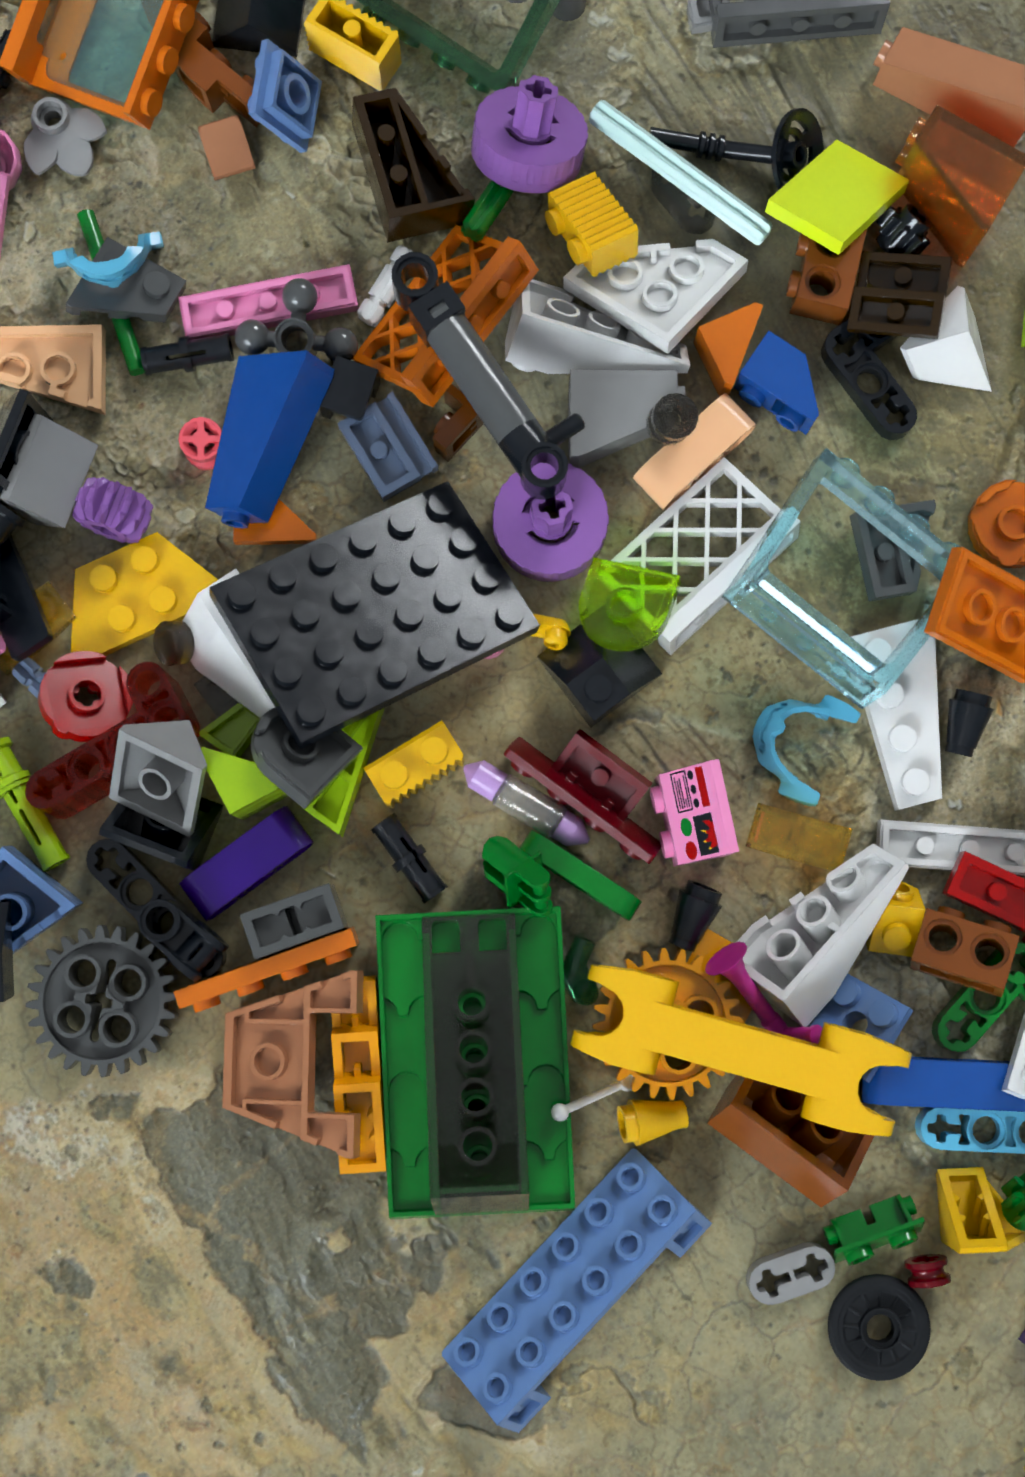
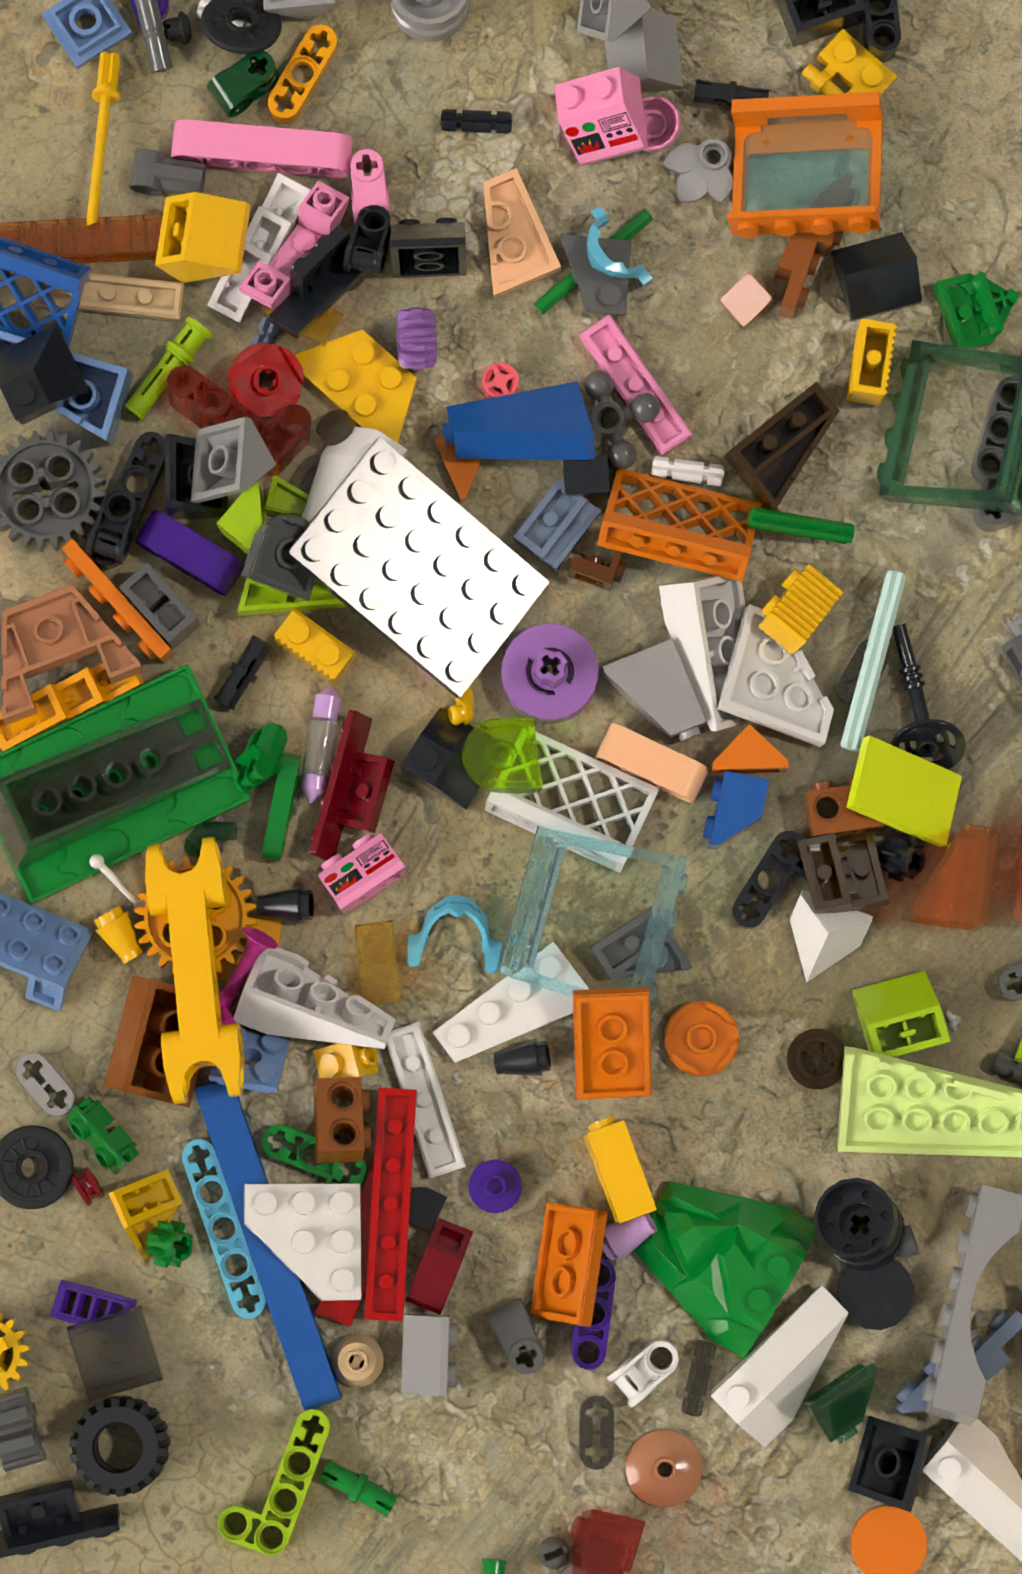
camera: 70 degrees right, 0 degrees up
(48, 473) = (422, 281): light grey slope -> none
(157, 358) = (566, 341): black pin -> none
(284, 96) = (789, 319): medium blue piece -> none
(442, 324) = (621, 571): piece -> none
(533, 117) = (865, 526): medium lavender piece -> none
(665, 426) = (664, 733): clear smoke wheel -> none

